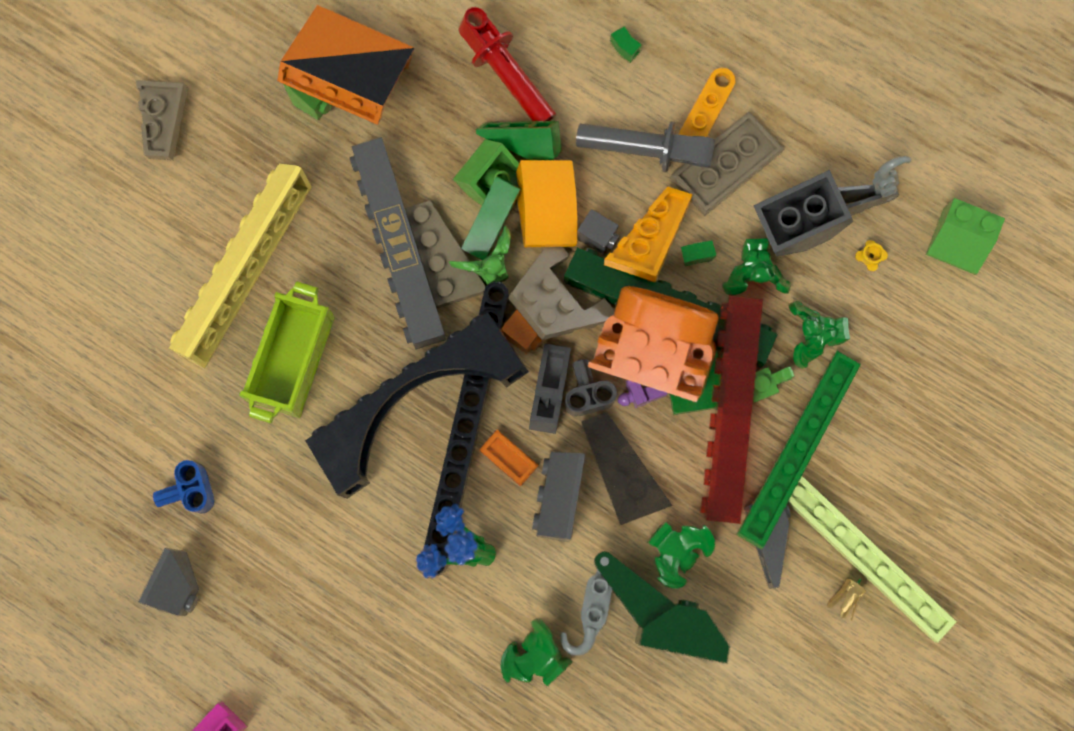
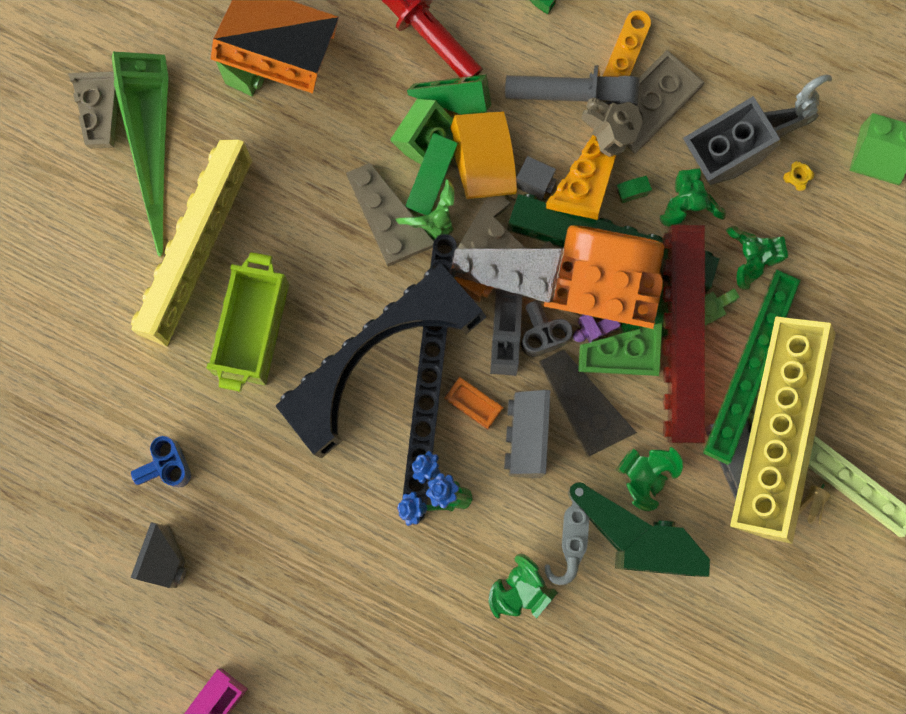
camera: 10 degrees left, 0 degrees up
(207, 112) = (142, 98): none -> bright green plate
(398, 244) = (344, 207): dark grey brick -> none
(563, 327) = (519, 271): none -> clear smoke wing
(669, 422) = (625, 353): none -> bright green wing
(682, 185) = (612, 124): none -> dark tan hinge
(823, 518) = (783, 429): none -> light yellow slope

